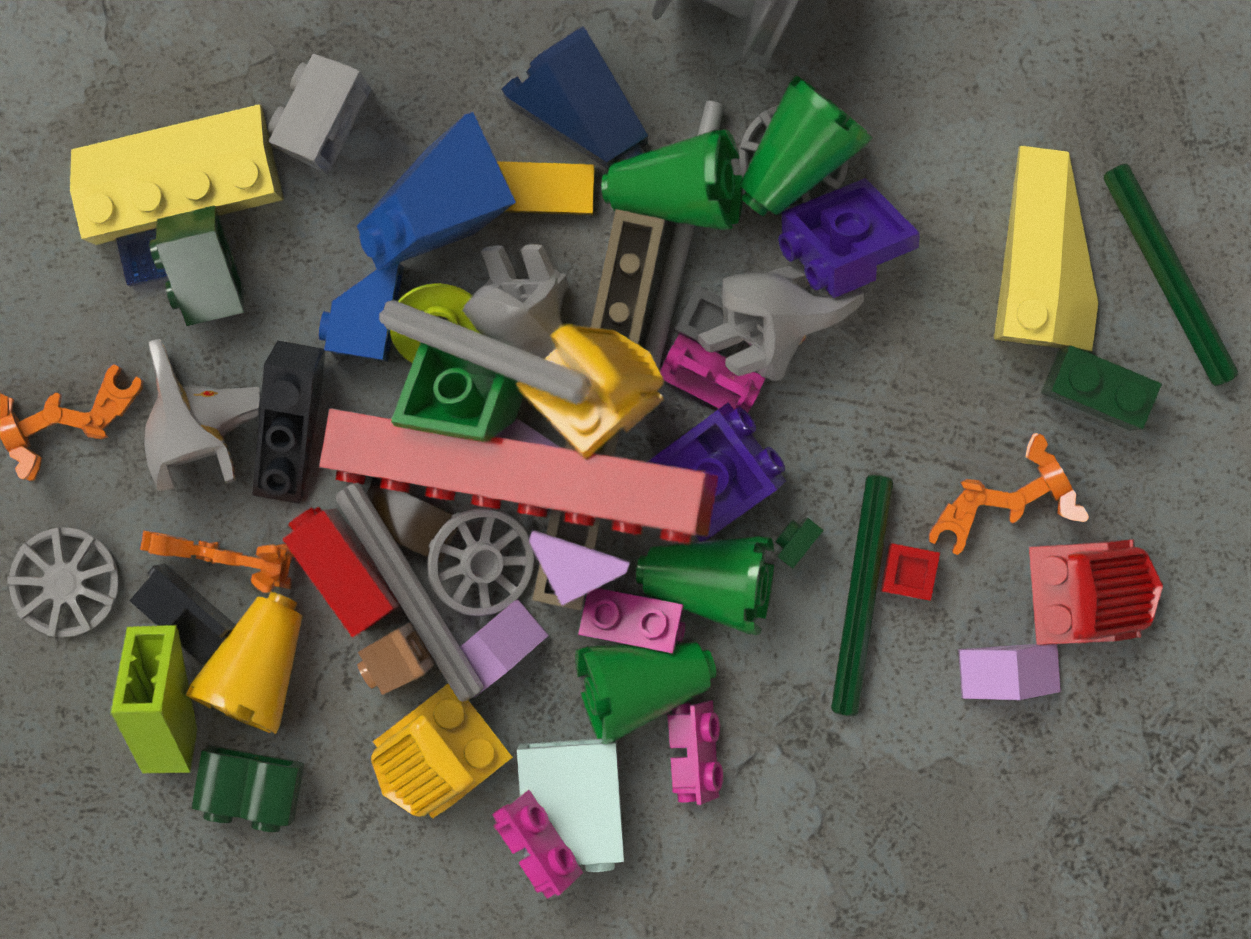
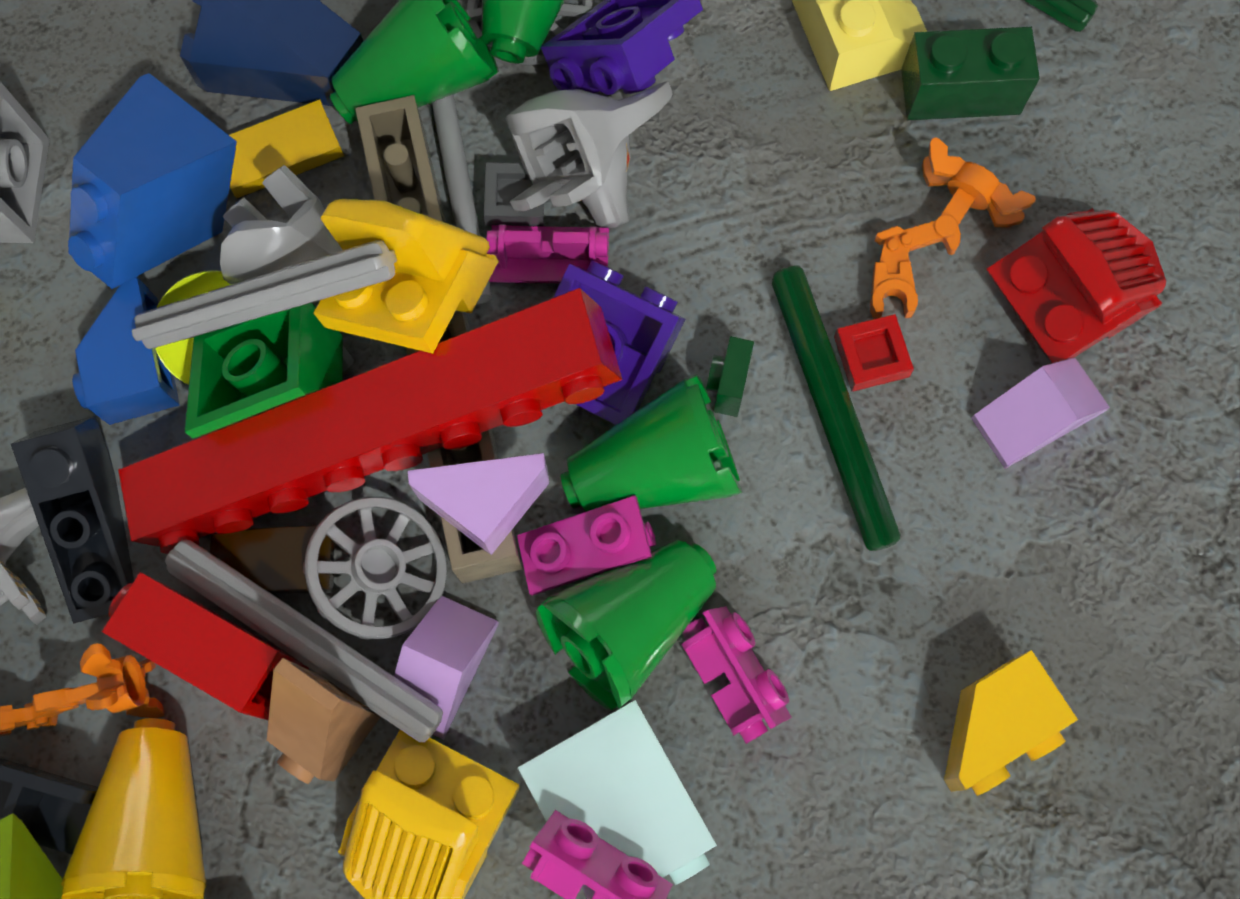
camera: 20 degrees left, 15 degrees down
(857, 869) = (1003, 718): none -> yellow slope

